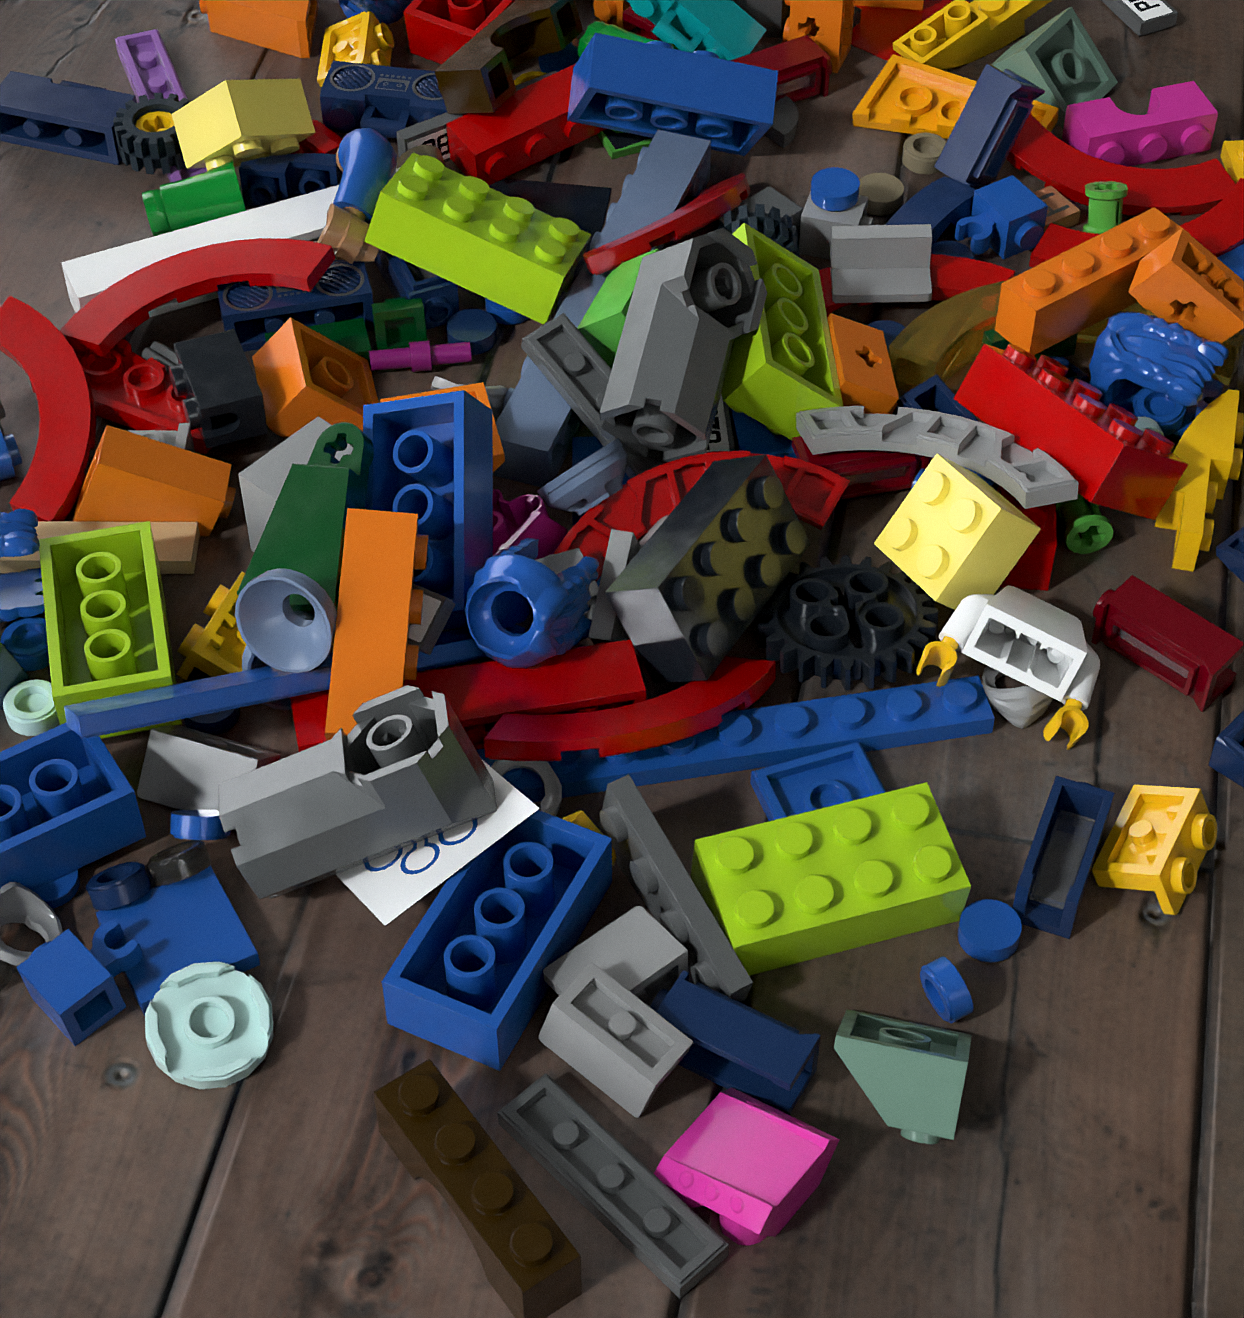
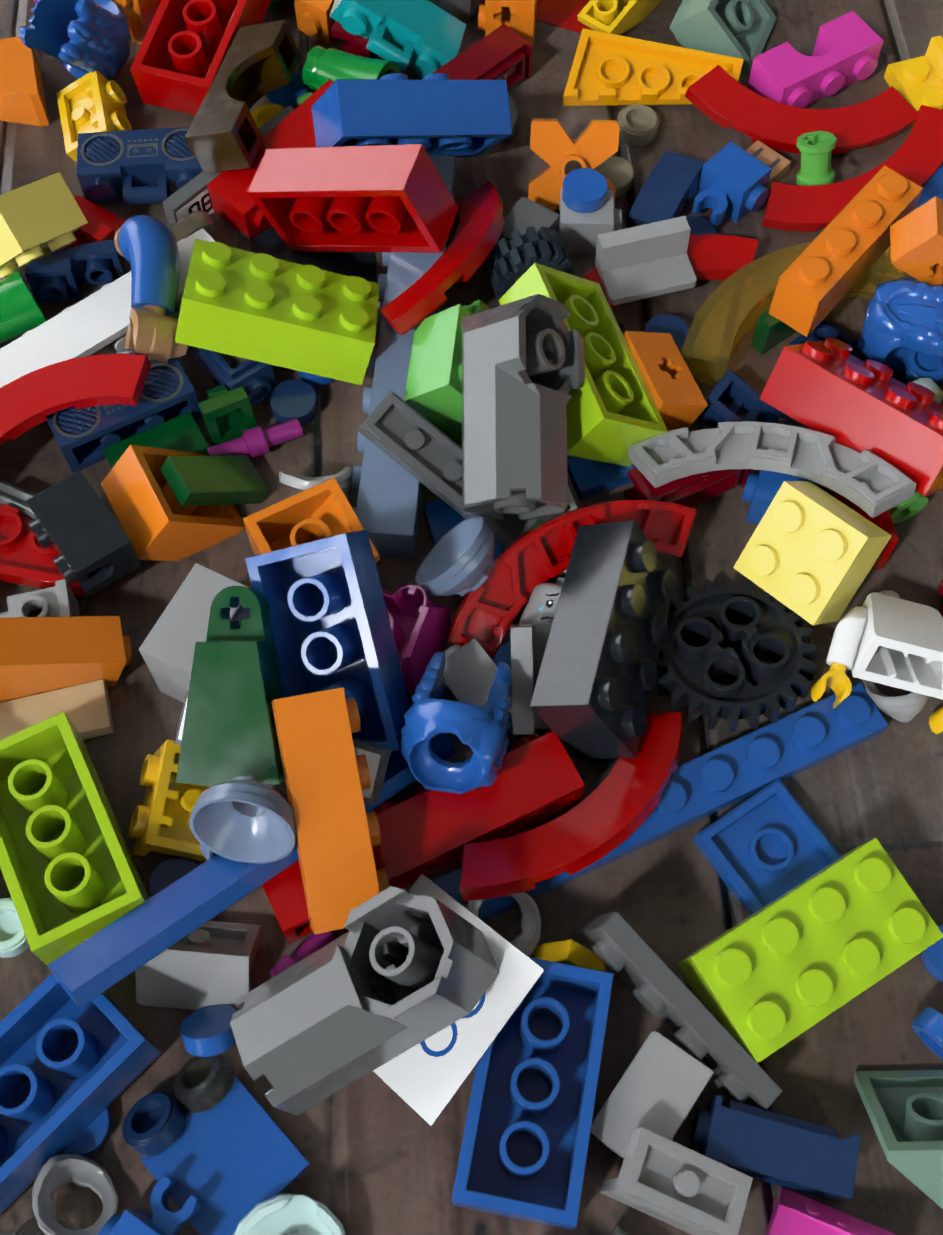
camera: 15 degrees left, 15 degrees up
(362, 370) = (214, 480): none -> dark green tile
(588, 151) = (355, 199): none -> red brick
(819, 147) = (557, 148): none -> orange plant
(988, 127) = (698, 97): dark blue window -> none

